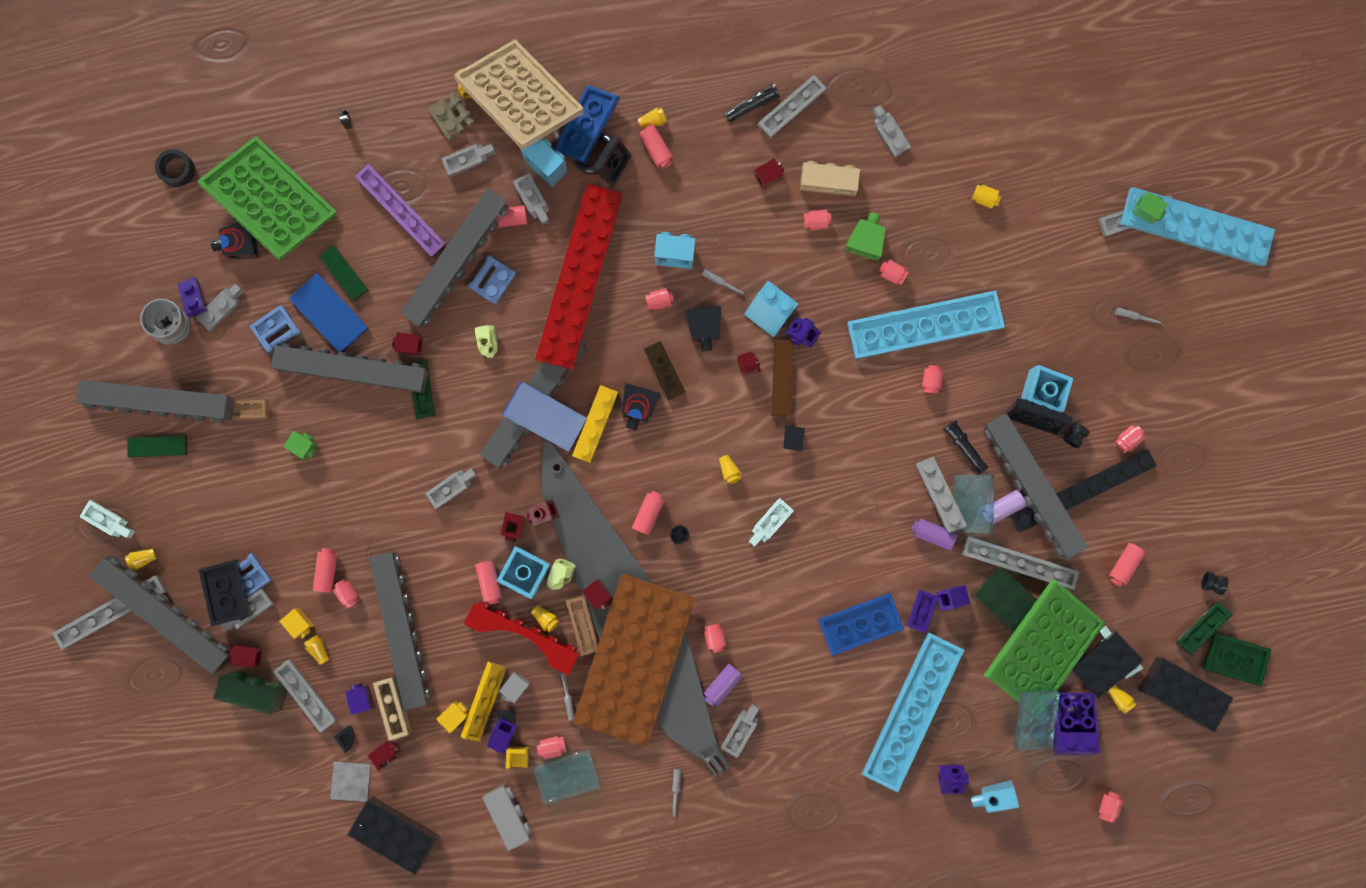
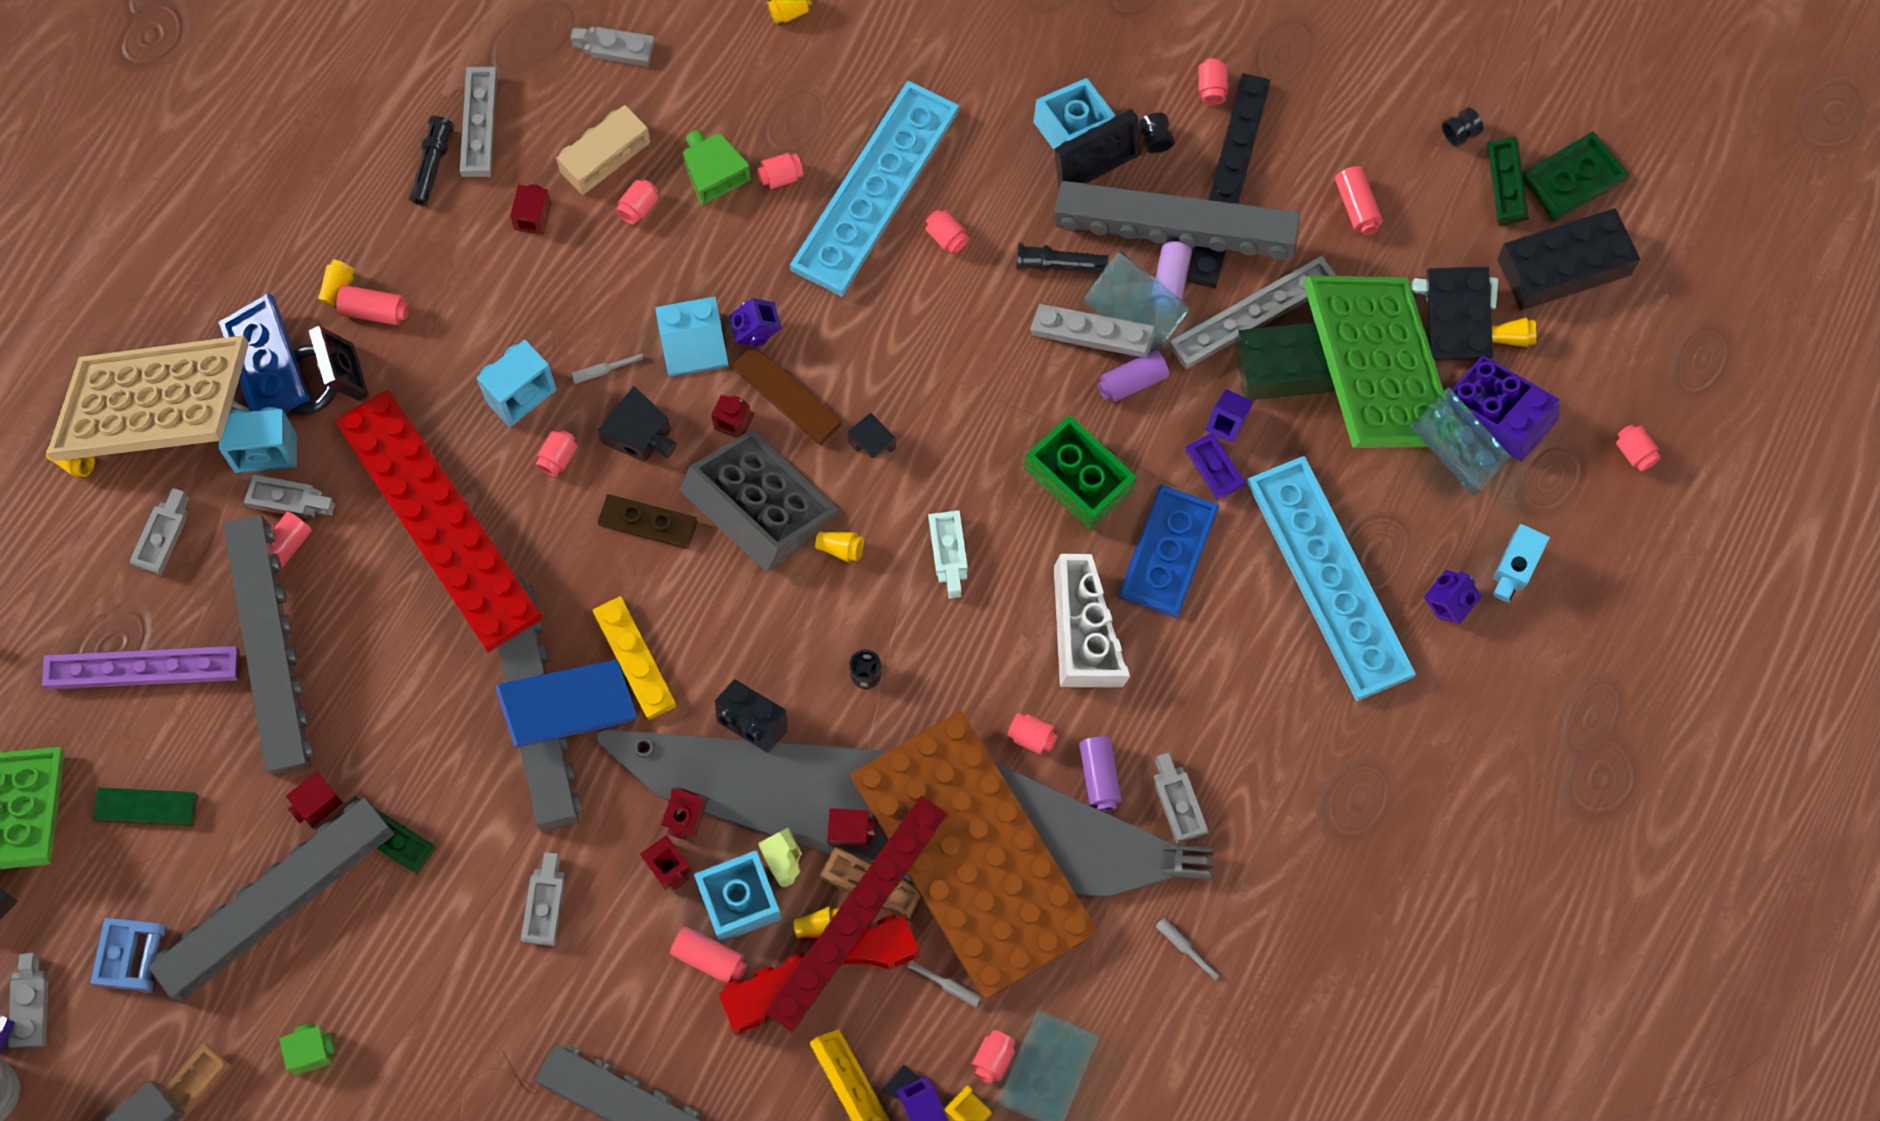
camera: 50 degrees left, 15 degrees down
(328, 313) = (175, 869): blue tile -> none
(445, 118) = (86, 519): dark tan plate -> none
(487, 340) = (404, 699): yellowish green rock -> none
(497, 282) = (347, 630): medium blue plate -> none
(514, 687) = (874, 1038): light grey brick -> none
(560, 634) = (856, 914): none -> dark red plate
(611, 504) = (751, 715): none -> black brick
(638, 405) = (659, 583): black torso -> none
(648, 513) = (804, 684): coral brick -> none
(718, 412) = (757, 499): none -> dark grey slope
(786, 618) = (1086, 639): none -> white wedge
(861, 551) = (1080, 472): none -> green brick

